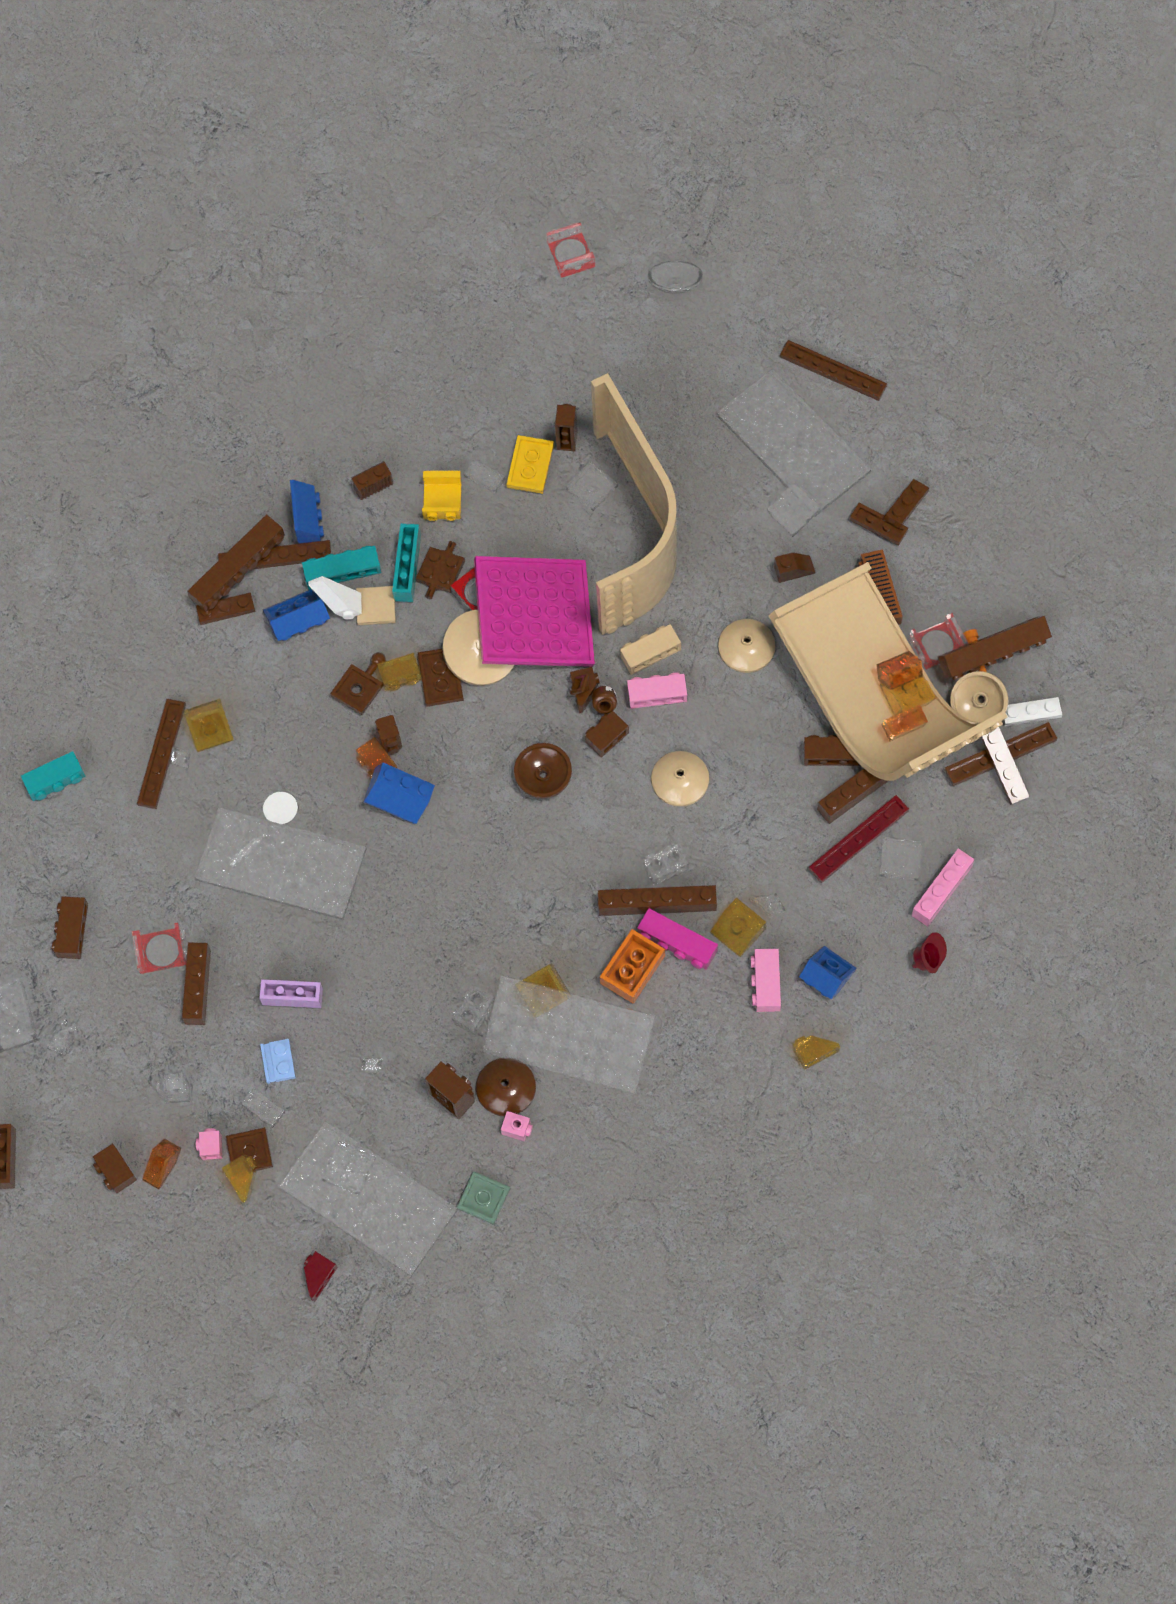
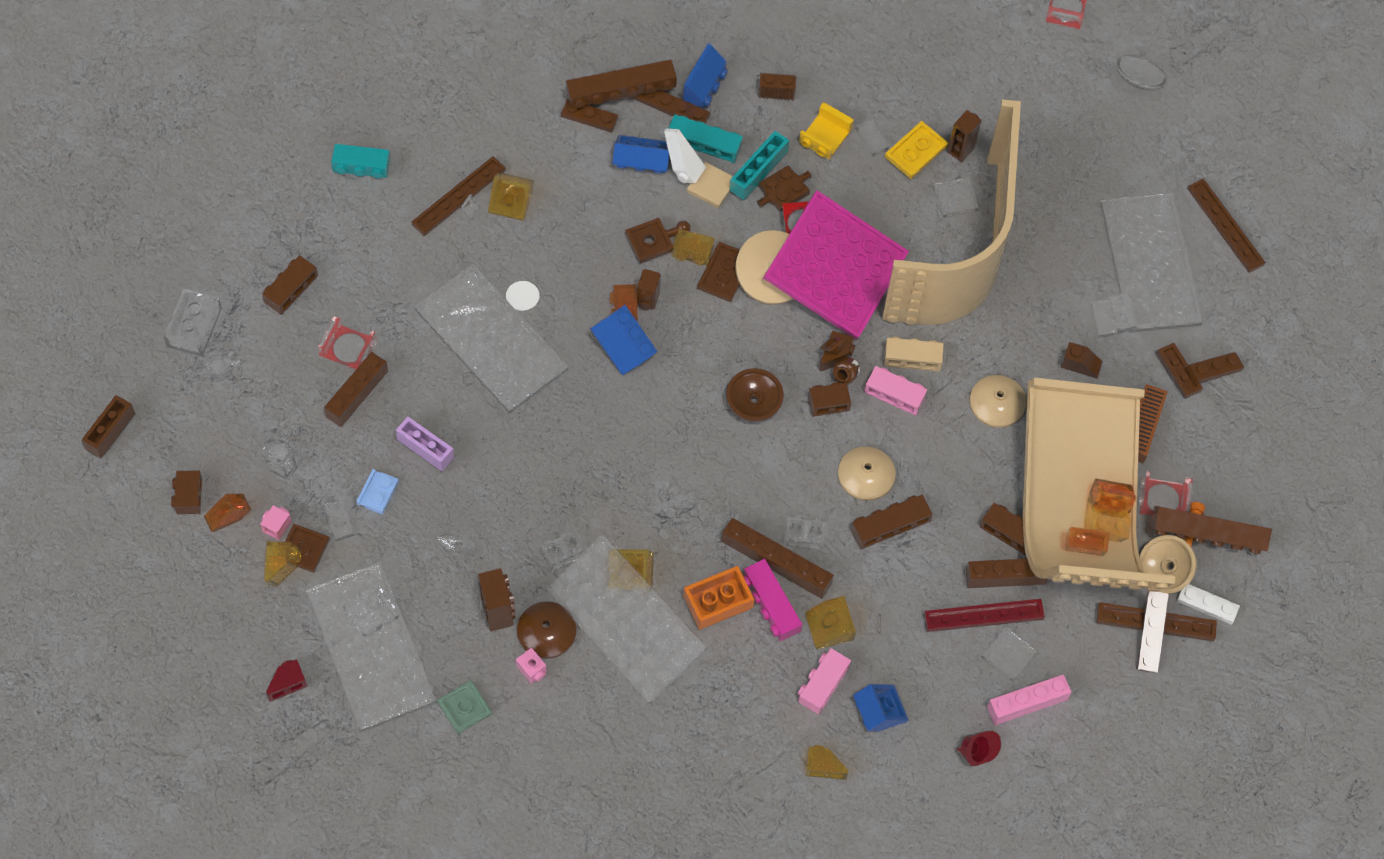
camera: 25 degrees right, 5 degrees down
(729, 808) = (891, 521): none -> reddish brown brick

